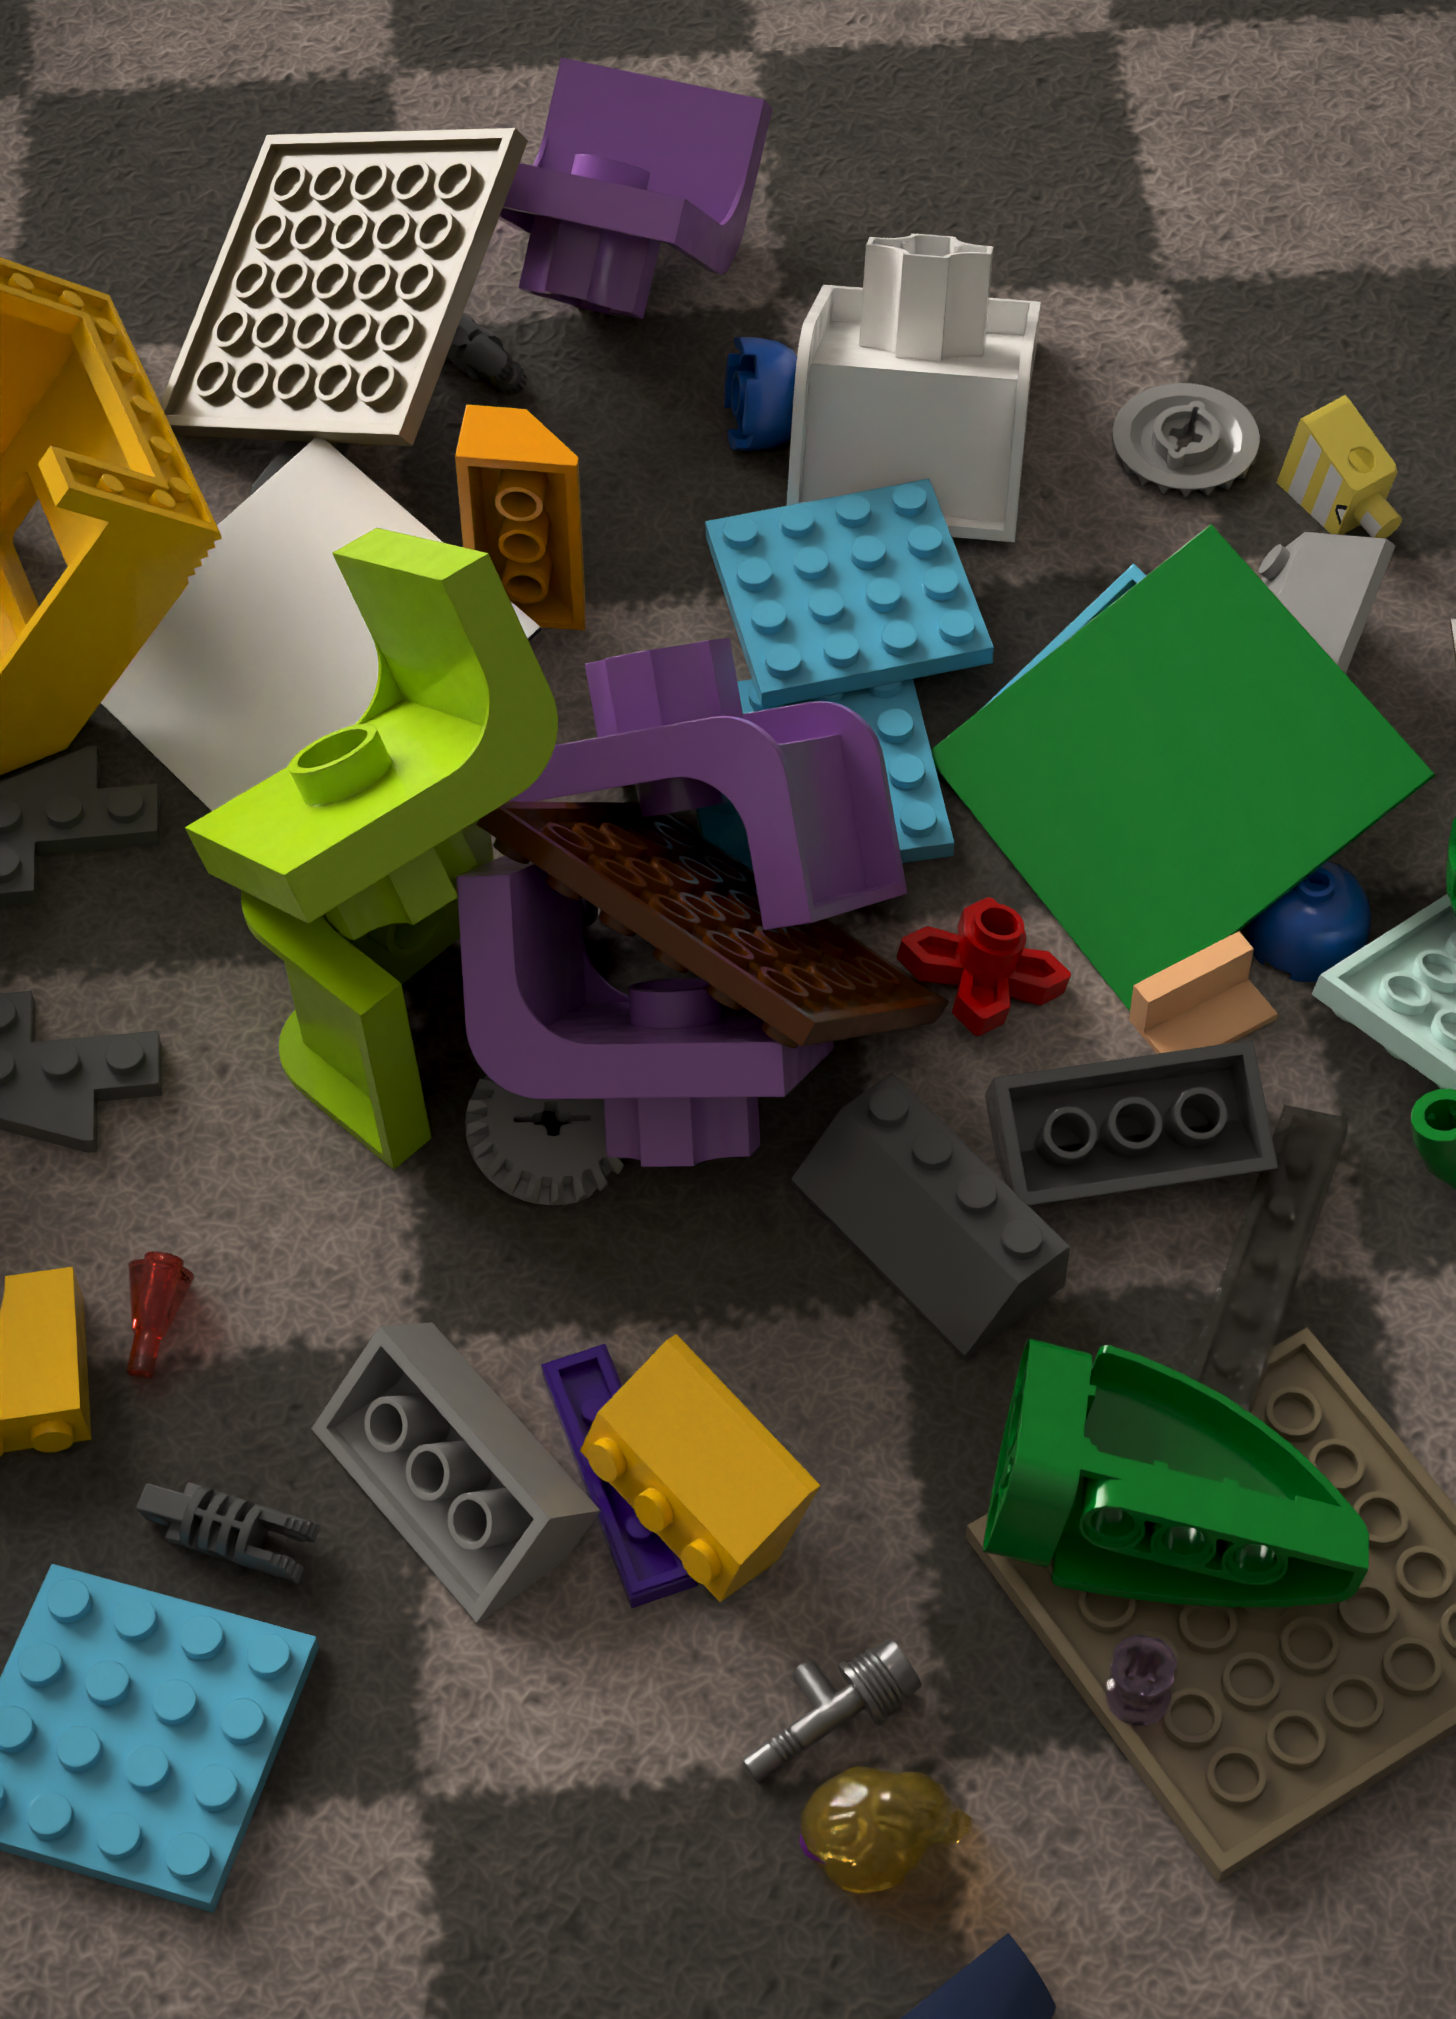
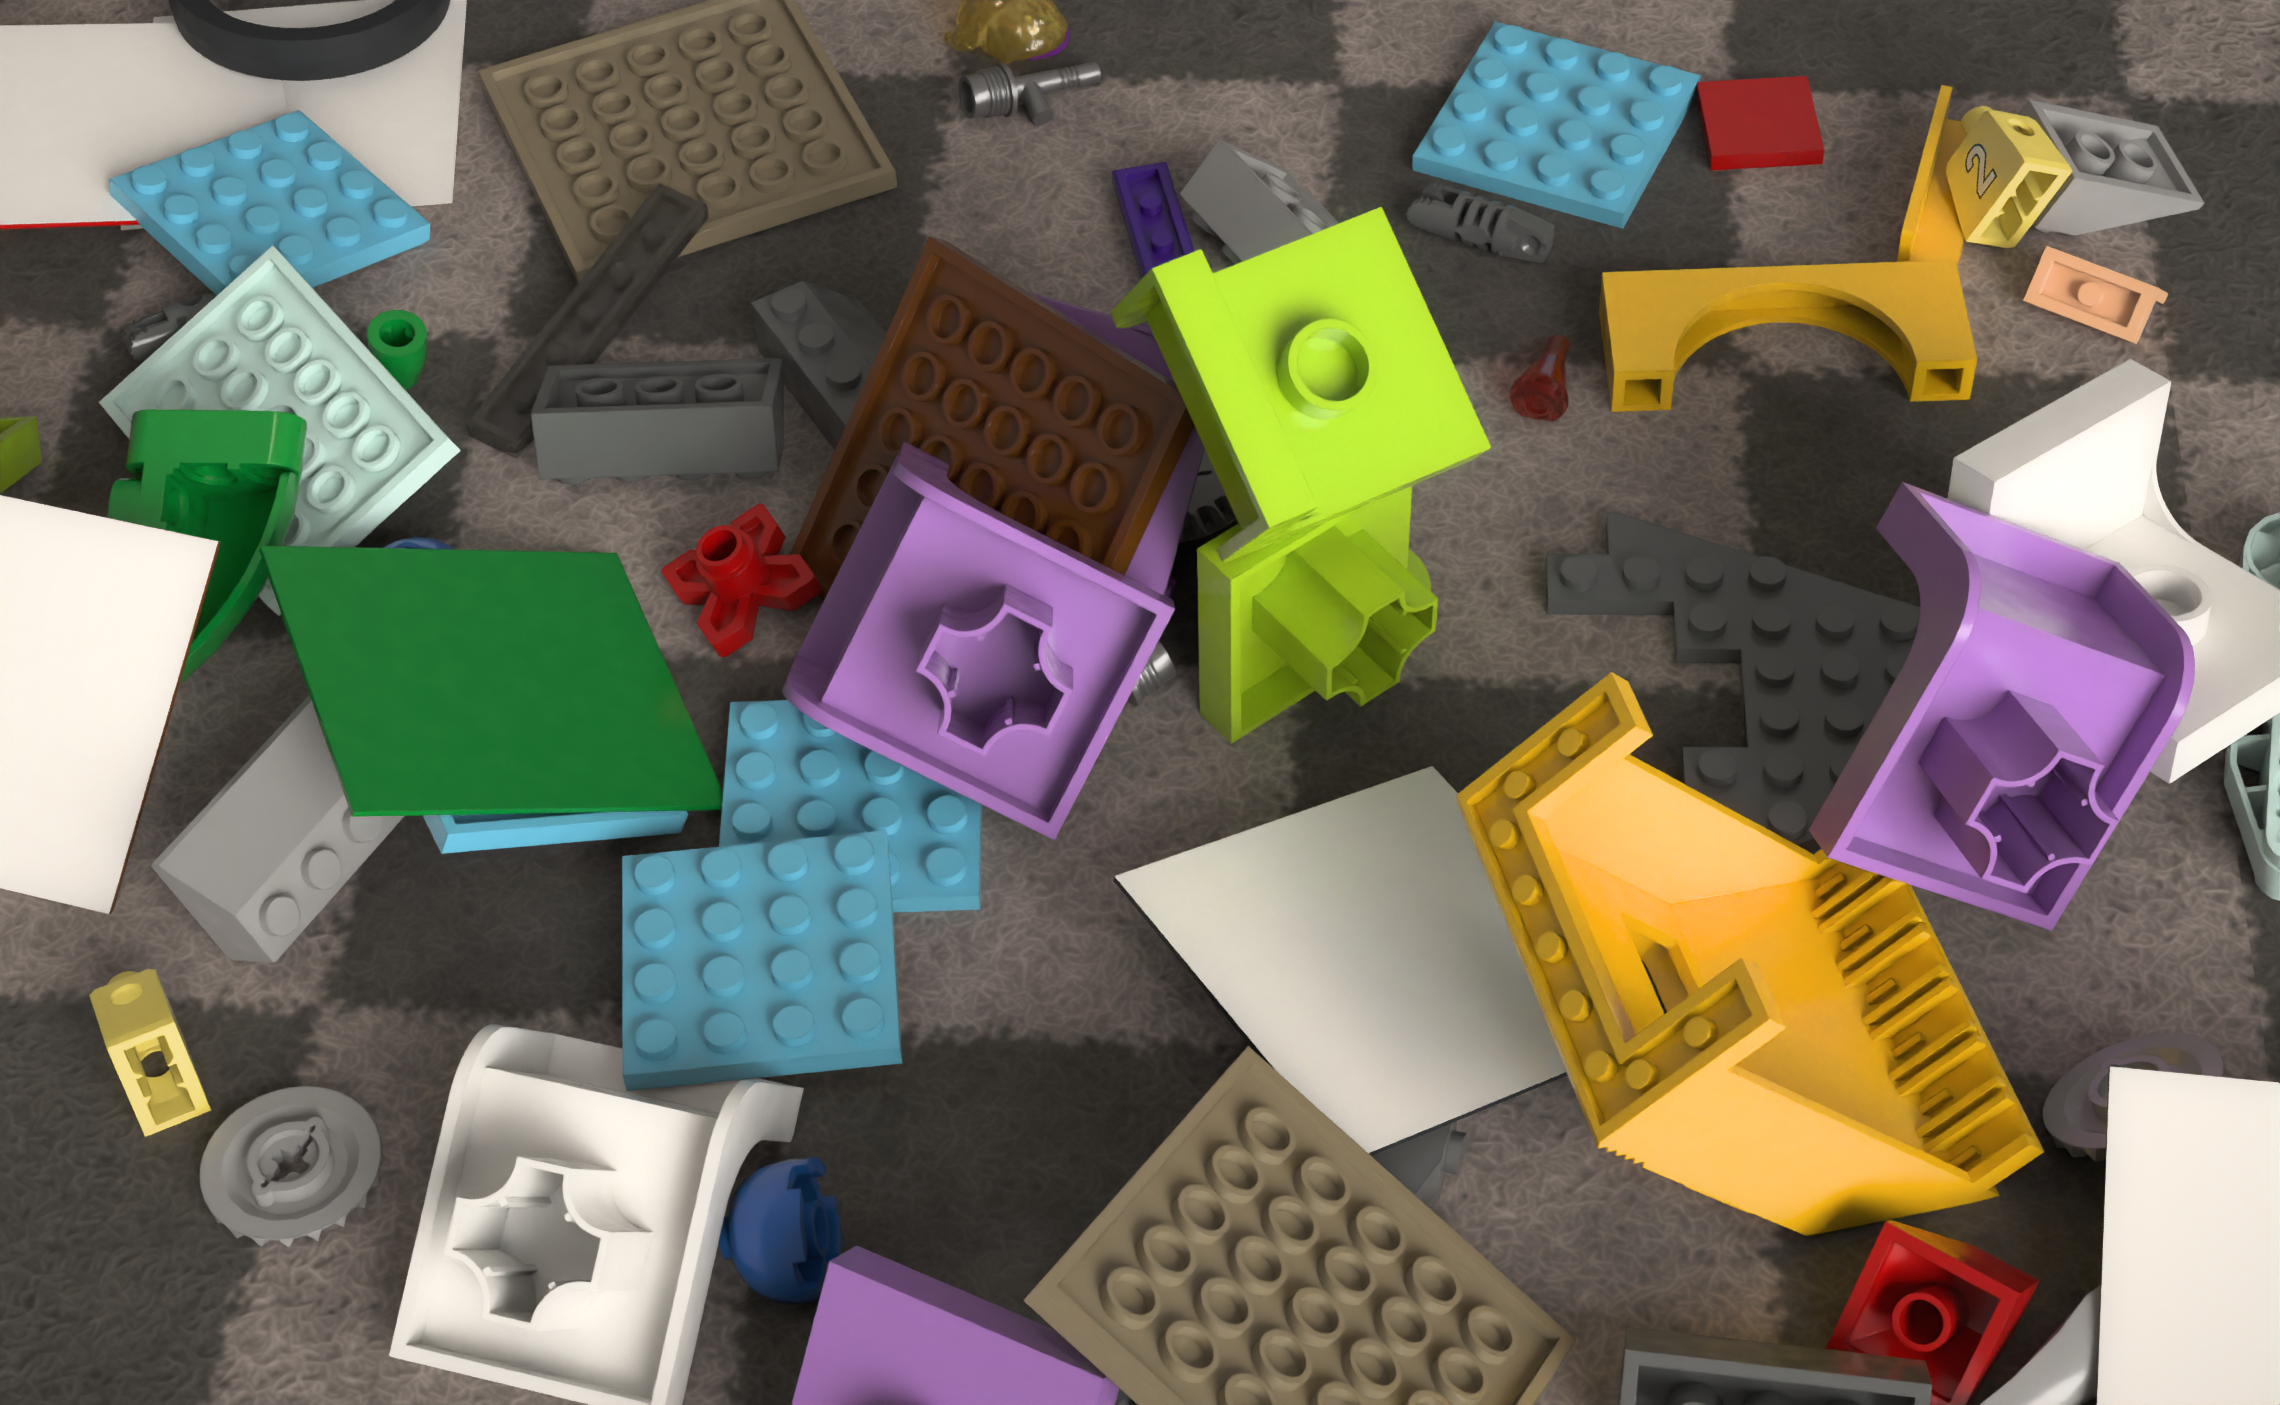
camera: 170 degrees left, 5 degrees down
(524, 511) = (1121, 968): light orange slope -> none
(699, 1469) = (1101, 187): yellow slope -> none
(1148, 1661) = (800, 46): bush -> none
(1163, 1490) = (751, 119): green panel -> none
(1201, 1000) = (573, 528): light nougat panel -> none

